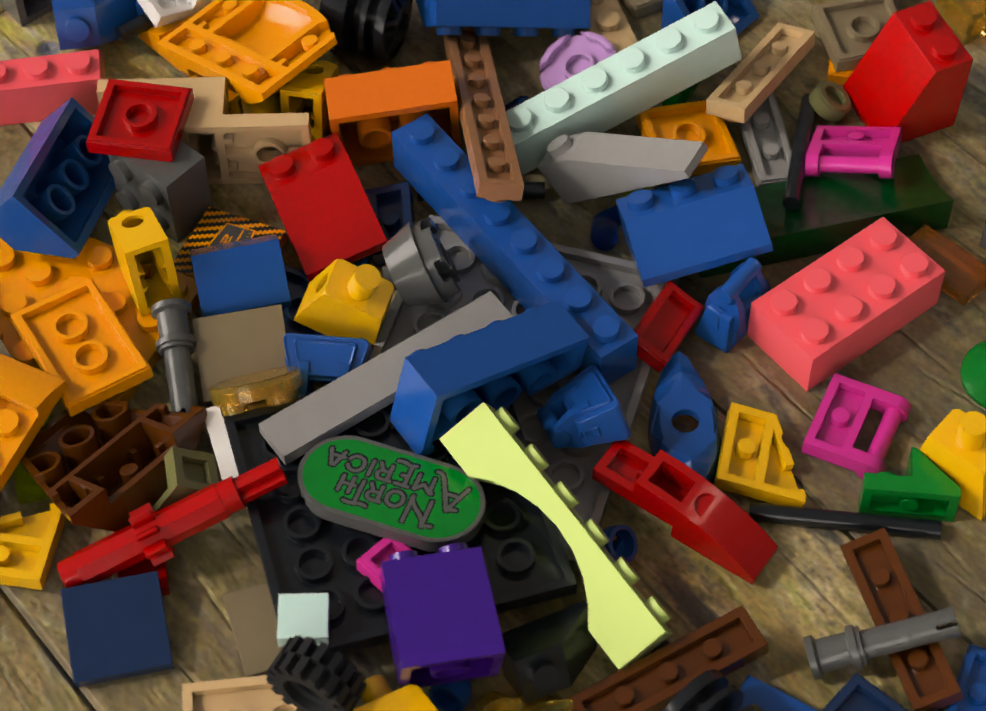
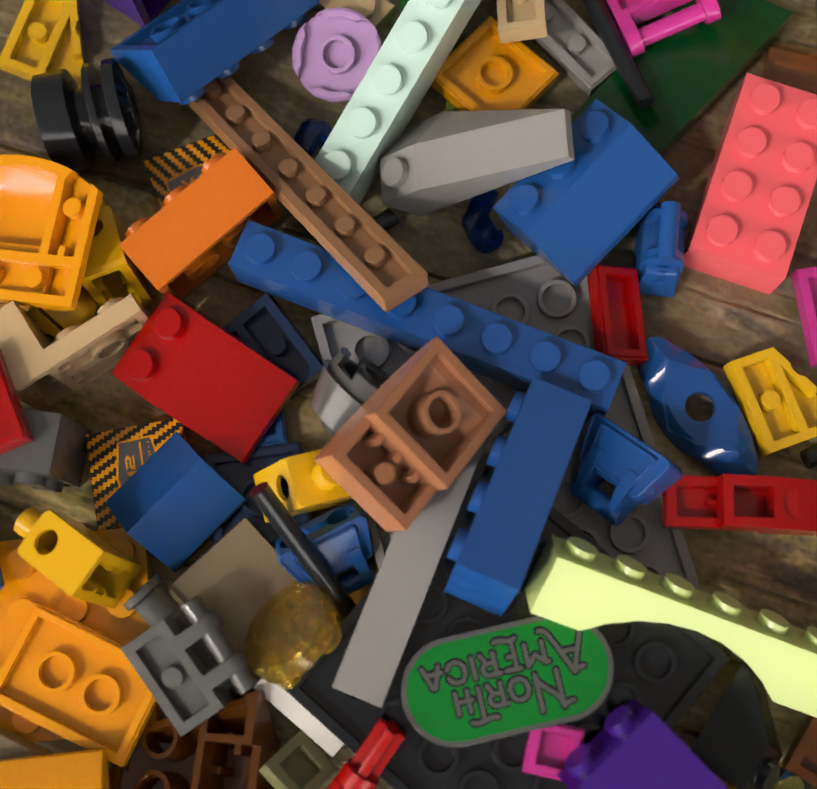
camera: 25 degrees left, 25 degrees up
(154, 360) = (176, 673): none -> dark grey plate
(306, 327) = (302, 547): none -> black bar
(437, 283) = (411, 436): none -> nougat slope
(625, 543) = (718, 574): blue hinge -> none

